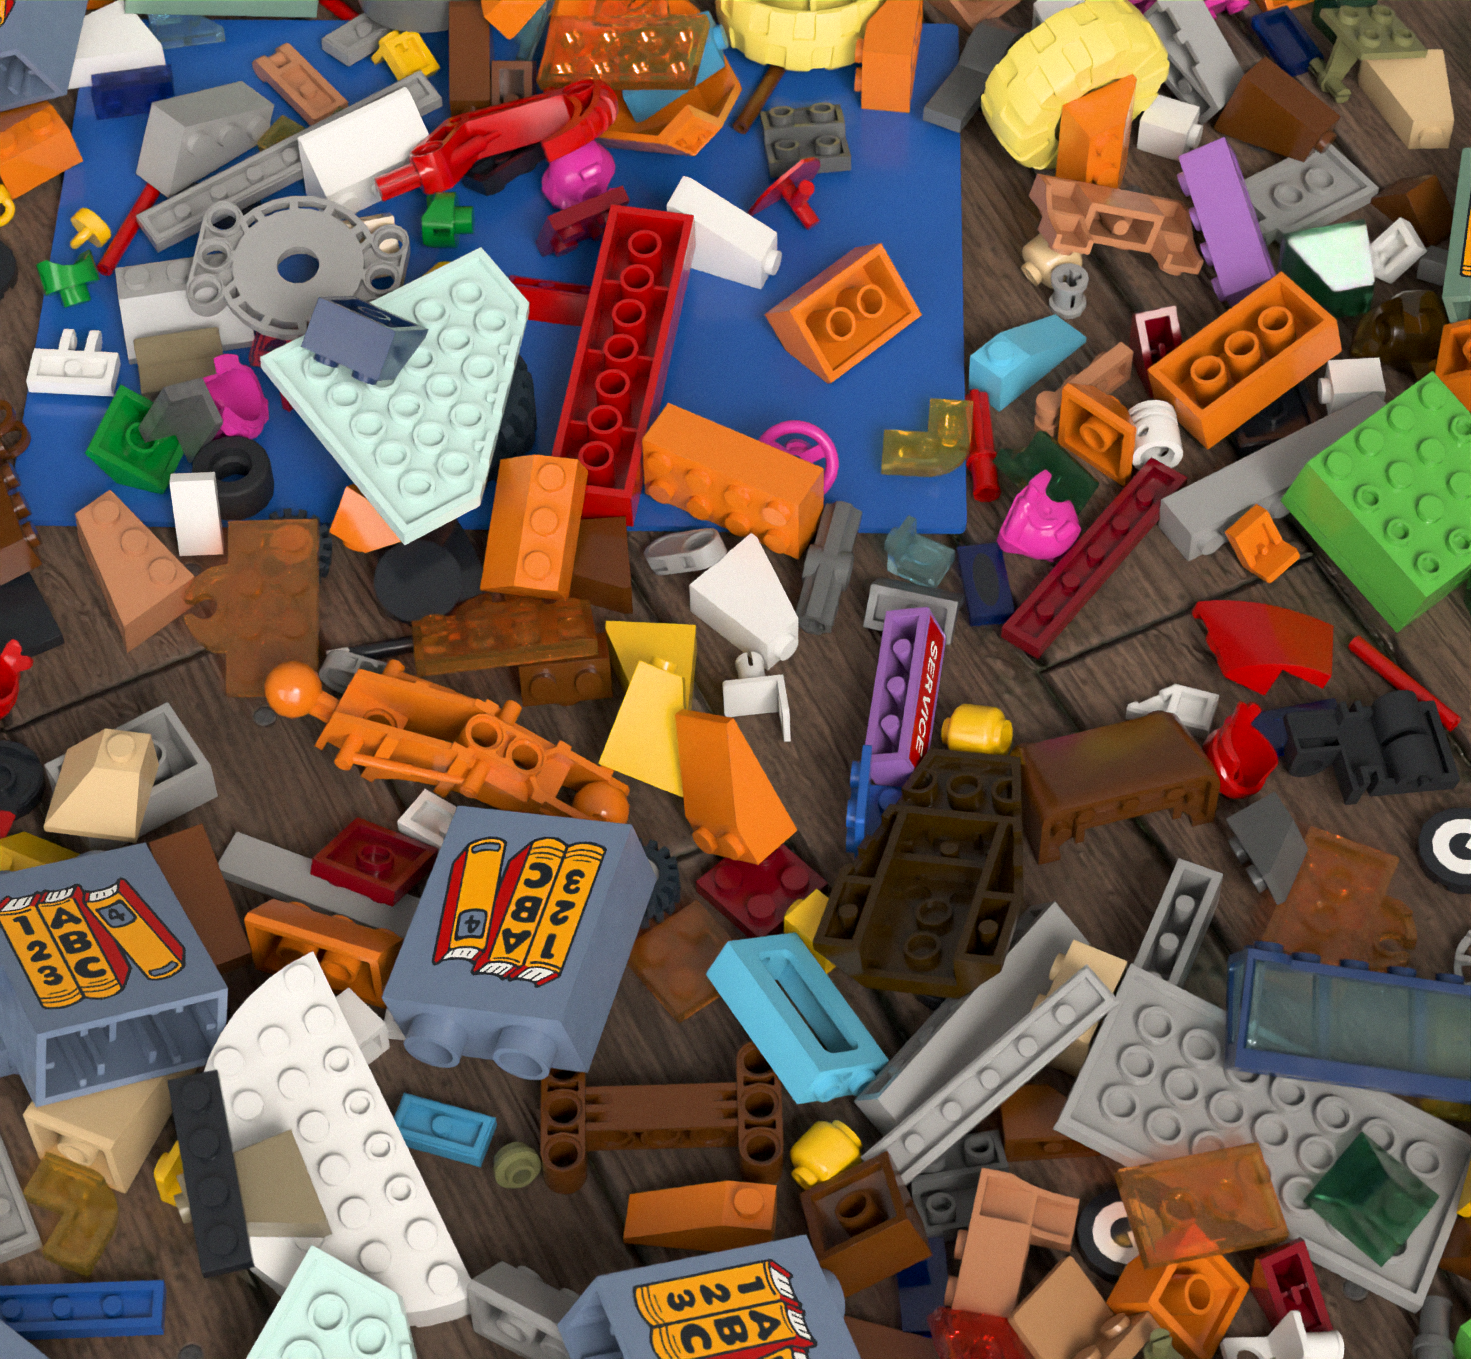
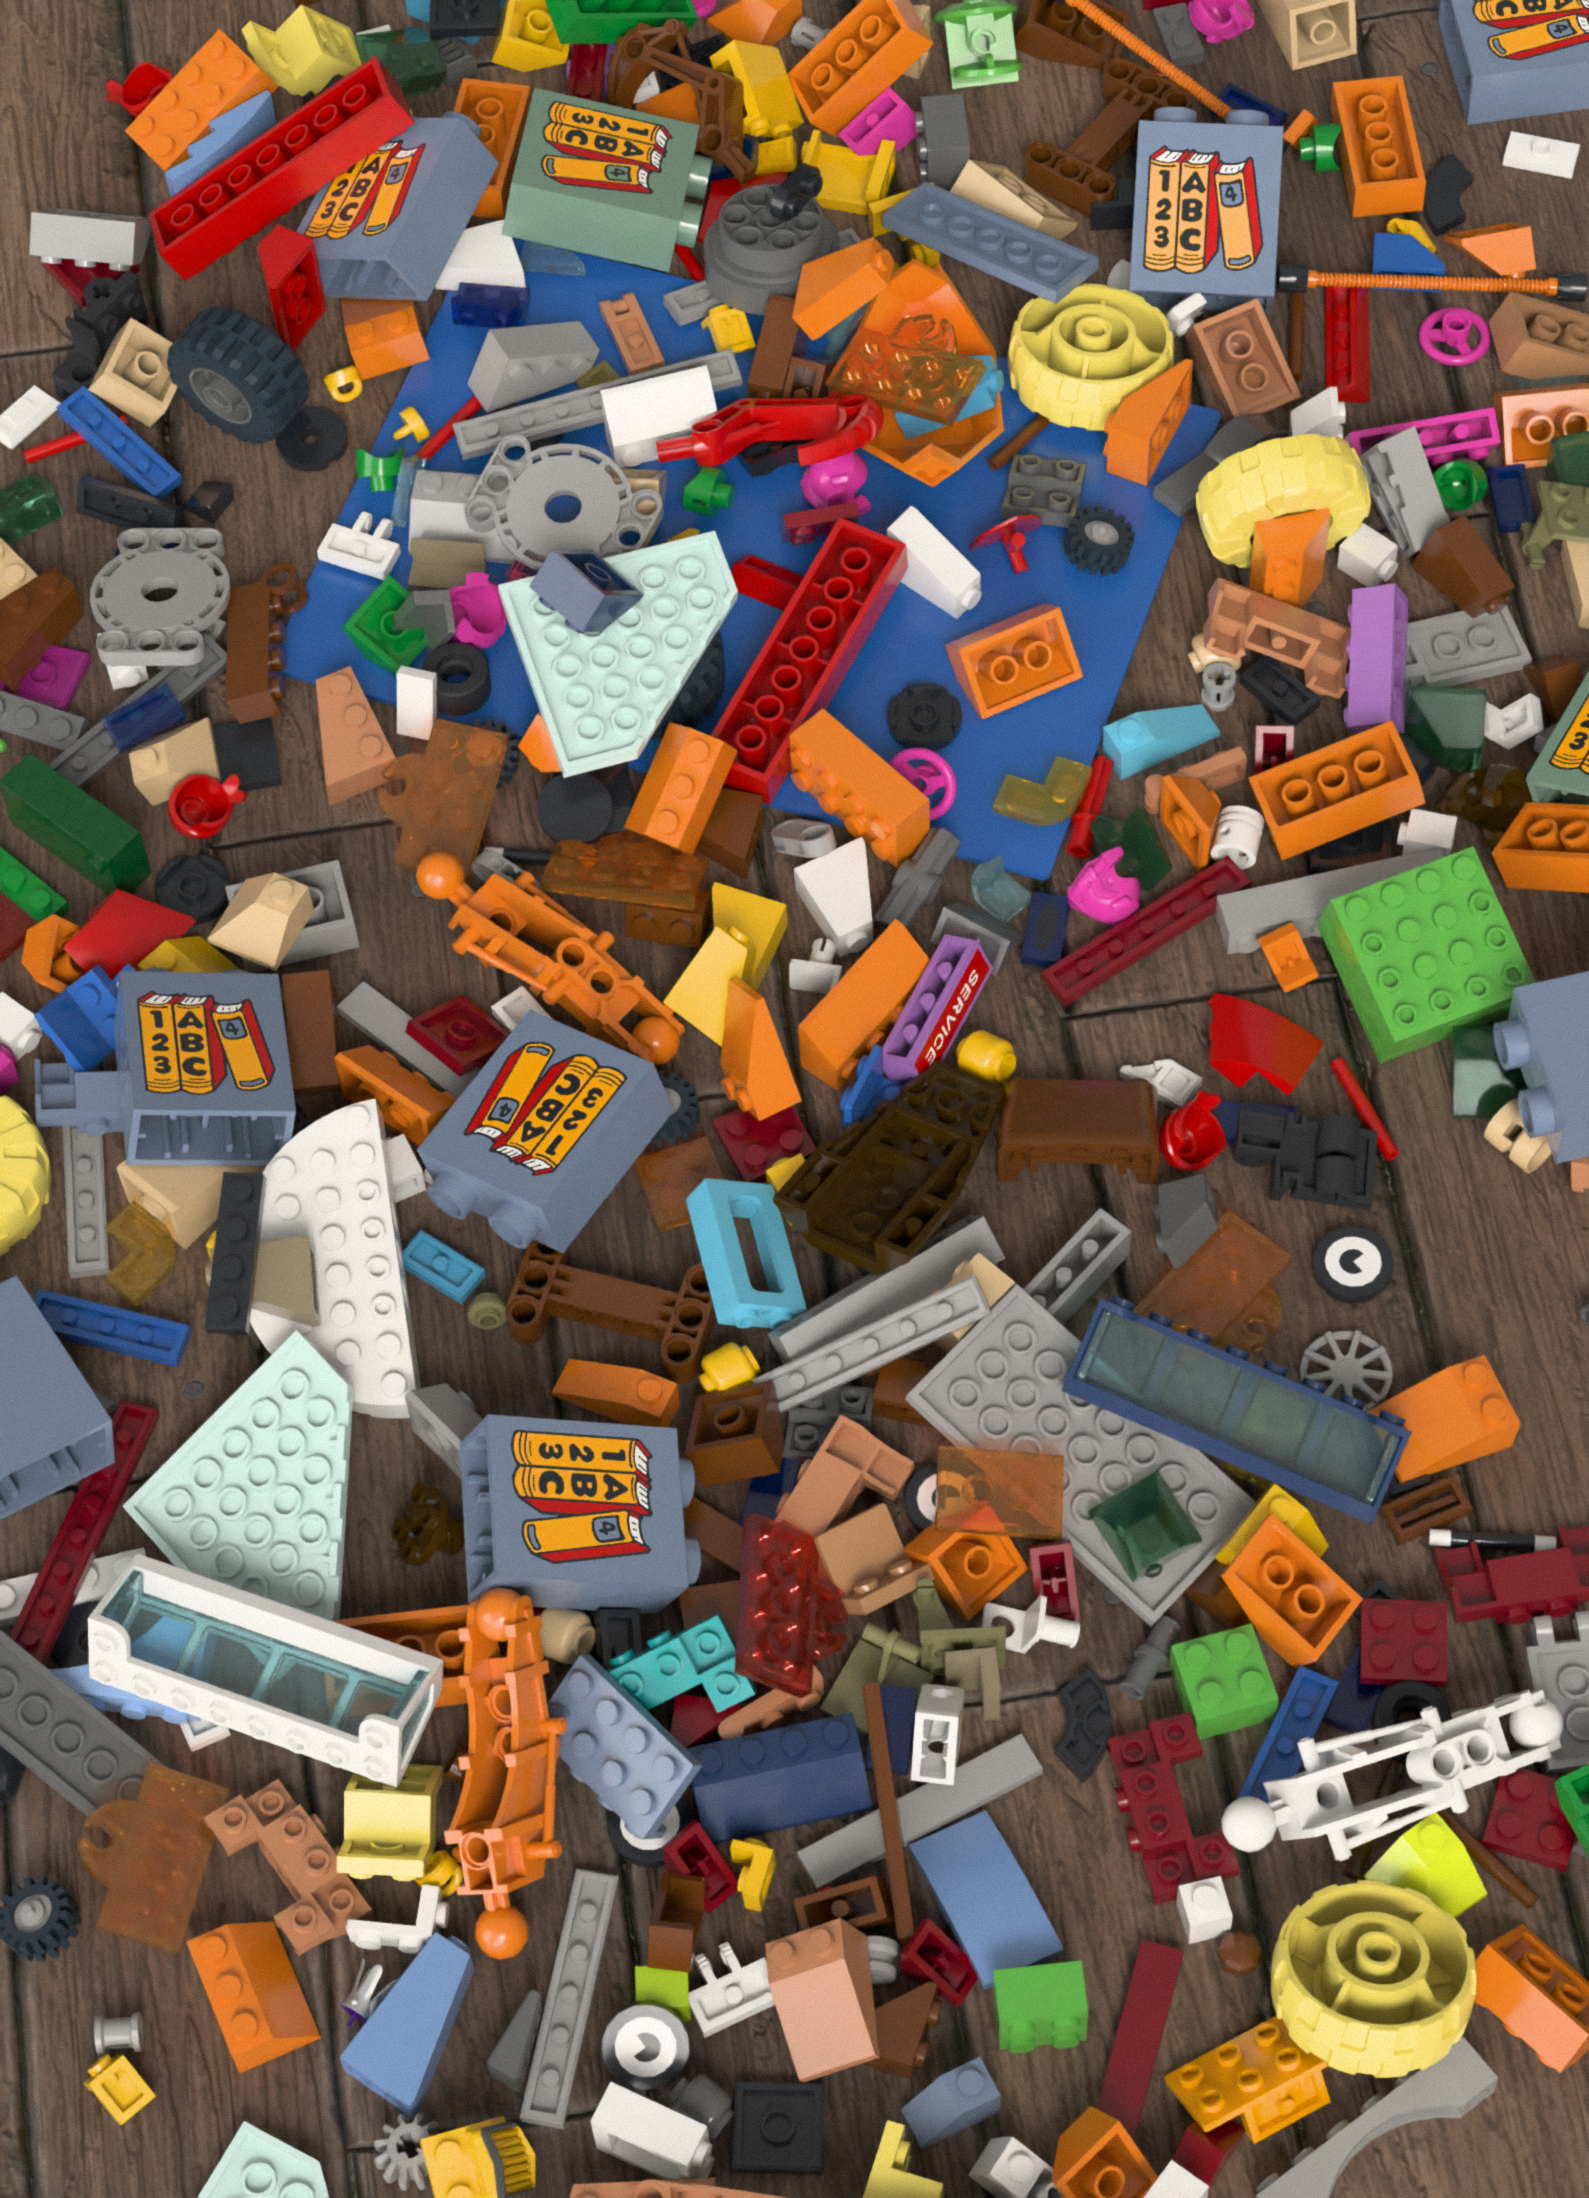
camera: 20 degrees right, 5 degrees up
(106, 295) = (404, 489): none -> clear light blue tile
(766, 394) = (924, 717): none -> black tile
(824, 714) = (861, 1007): none -> orange slope
(886, 173) = (1098, 541): none -> black wheel
(1133, 279) = (1279, 690): none -> black plate
(1241, 32) = (1461, 483): none -> green piece

